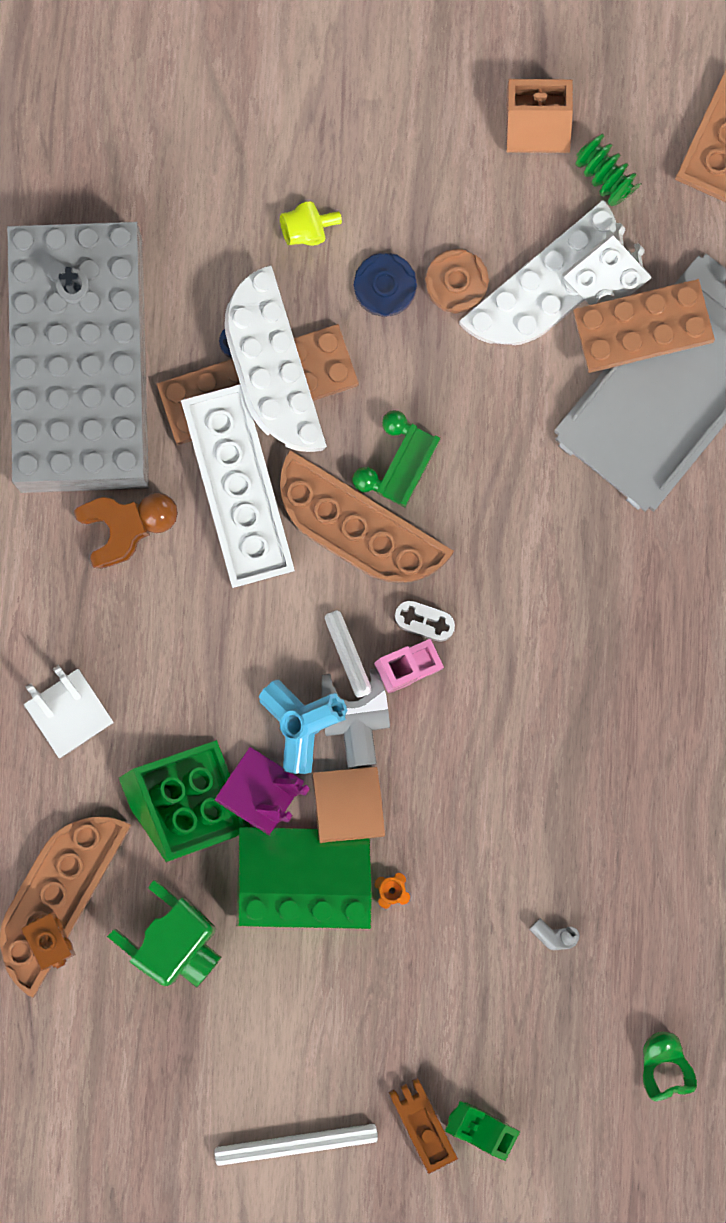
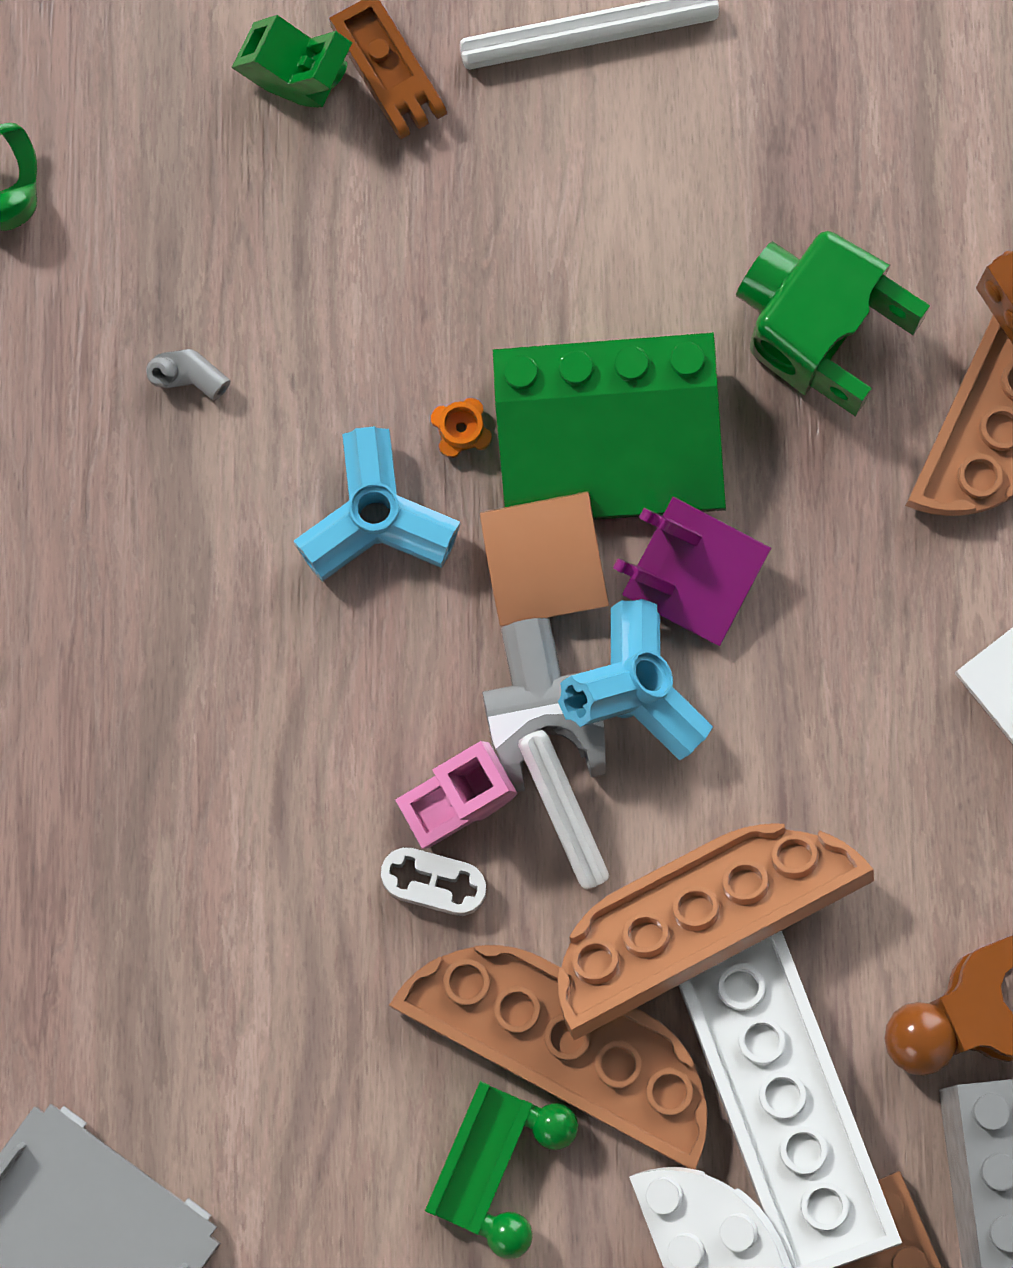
camera: 175 degrees right, 5 degrees down
(177, 802) = (832, 540): green slope -> none
(276, 587) = (699, 916): none -> nougat plate
(465, 826) = (372, 480): none -> medium azure piece

